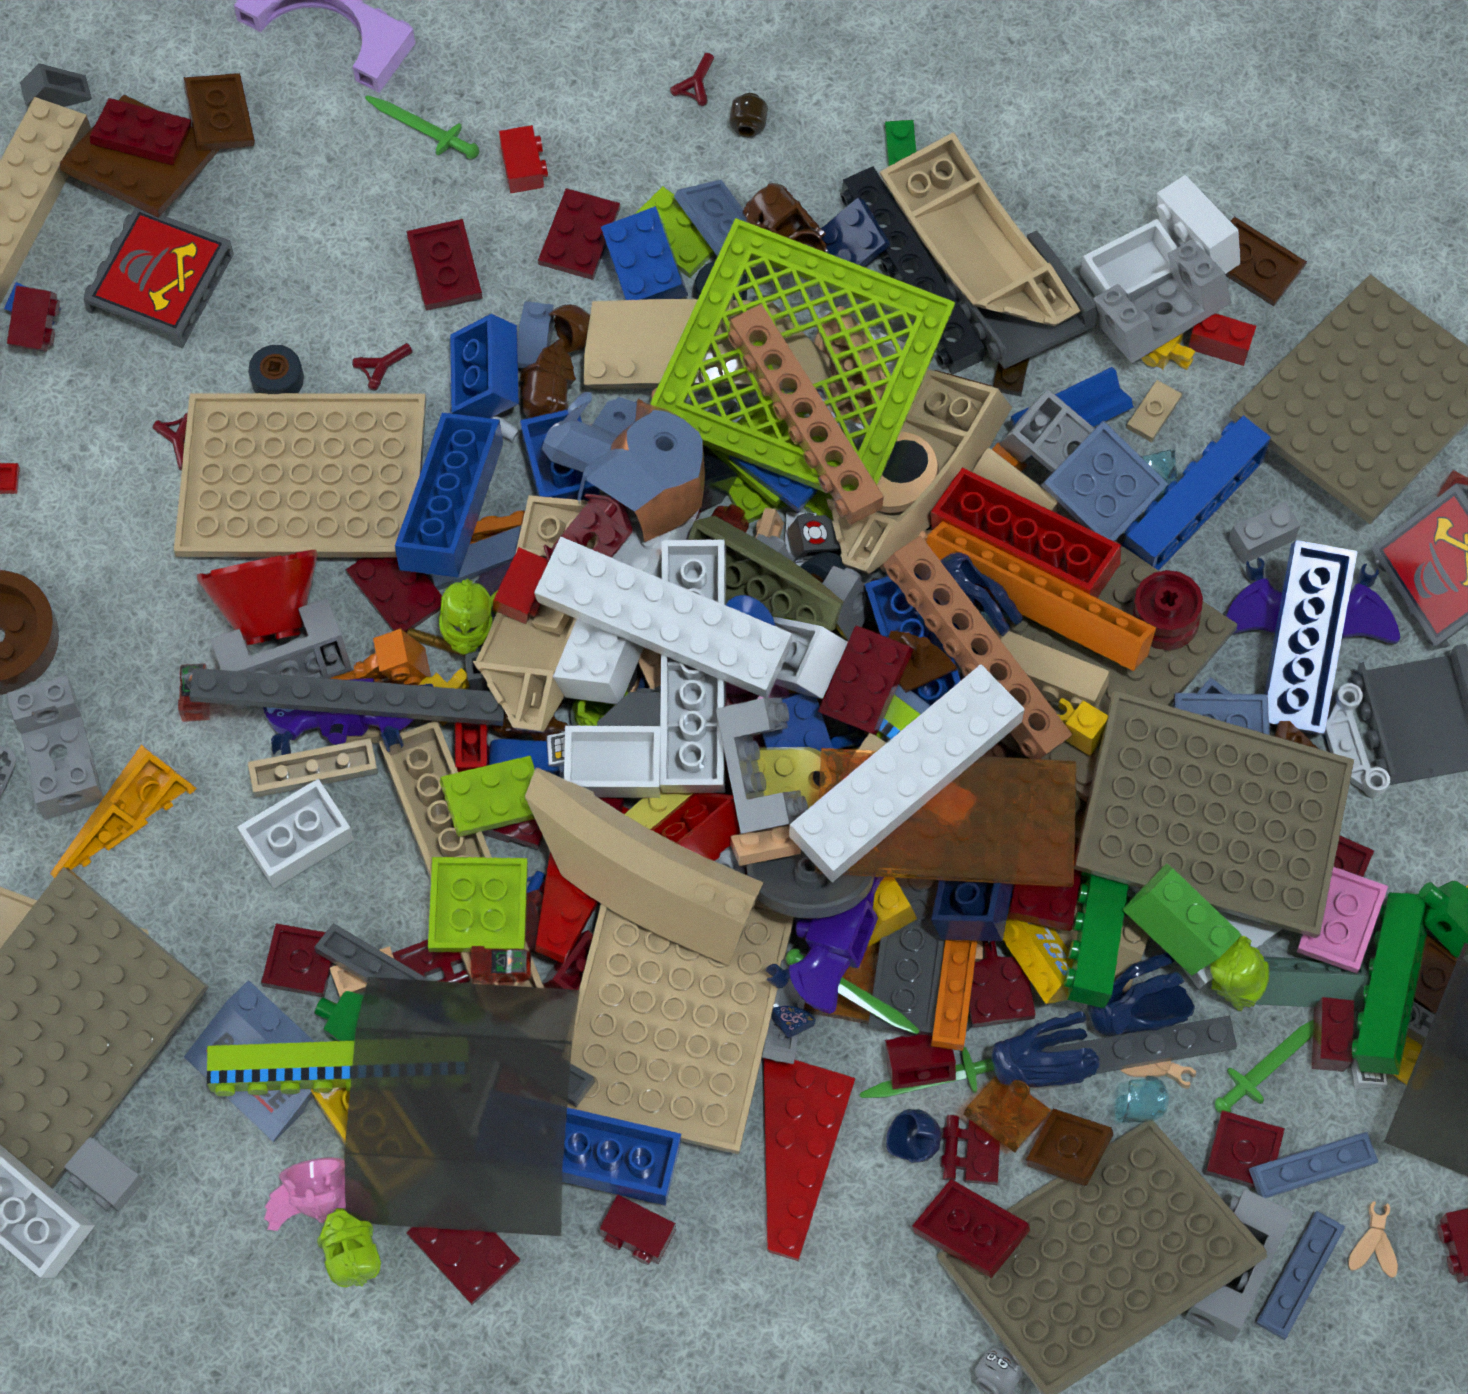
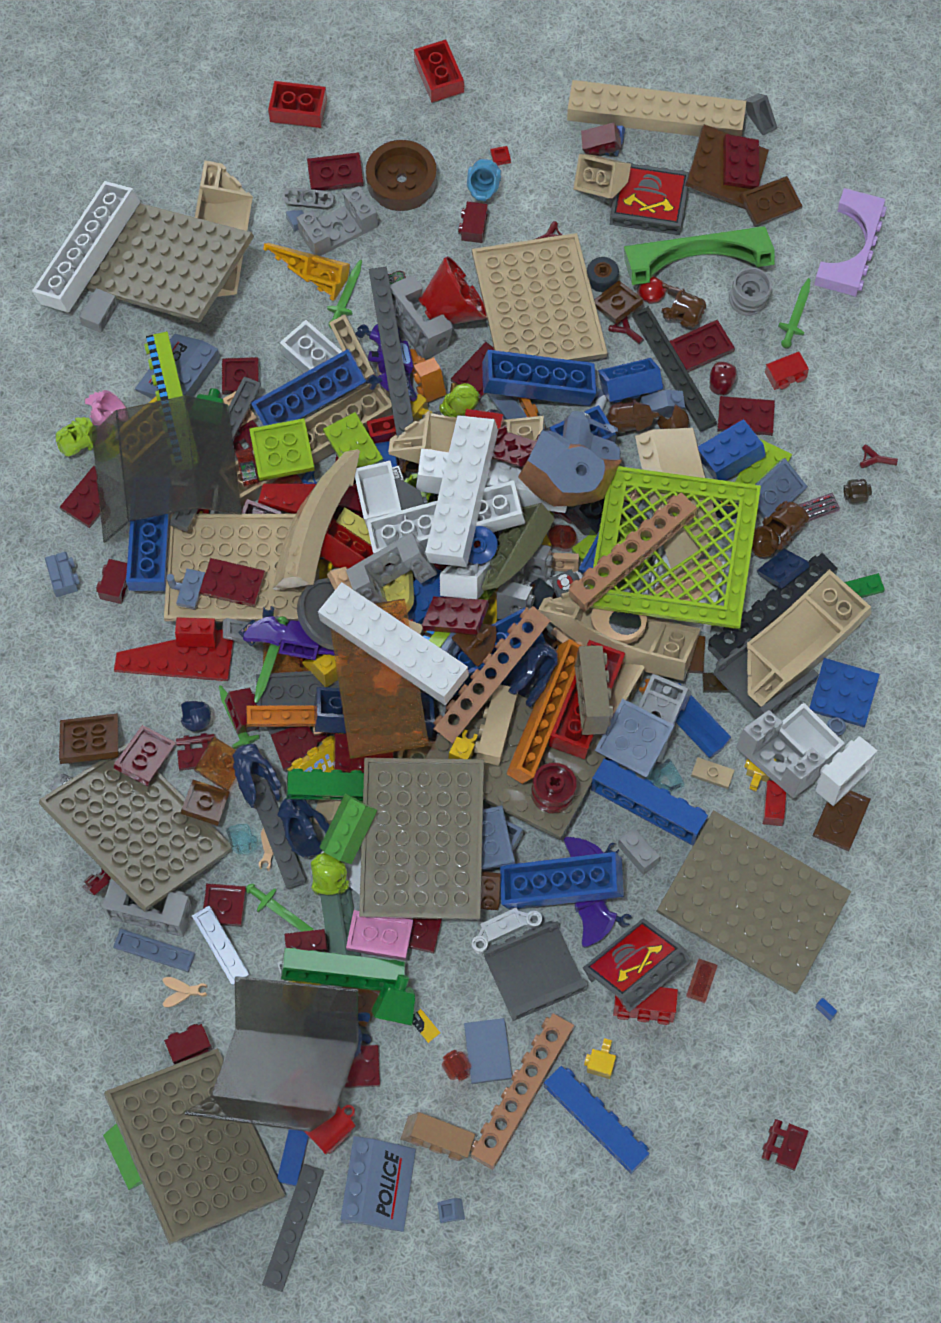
camera: 80 degrees right, 0 degrees up
(22, 816) = (292, 218): none -> sand blue slope
(42, 503) = (483, 179): none -> dark azure helmet
(103, 330) = (600, 175): none -> tan slope
(120, 540) = (474, 222): none -> dark red brick
(217, 780) = (340, 308): none -> bright green sword
(287, 159) = (748, 244): none -> bright green arch
(323, 313) = (653, 291): none -> red hair
(334, 360) = (618, 302): none -> reddish brown plate
(373, 270) = (685, 307): none -> reddish brown helmet
(375, 172) = (750, 291): none -> light grey wheel
(379, 842) = (310, 390): none -> blue brick
(461, 312) = (674, 368): none -> pearl dark grey plate
(509, 246) = (722, 378): none -> dark red helmet
(602, 1316) = (61, 574): none -> sand blue brick
(697, 1097) = (189, 588): none -> sand blue plate
(703, 1026) = (232, 582): none -> dark red plate
(756, 169) = (821, 506): none -> tile
(770, 1107) = (195, 632): none -> red brick
(923, 1314) = (89, 738): none -> reddish brown plate
(1035, 510) = (593, 690): none -> dark tan brick
(1064, 210) = (844, 692): none -> blue plate
(1112, 230) = (837, 726): none -> sand blue plate
(1183, 1343) = (95, 883): none -> dark red plate

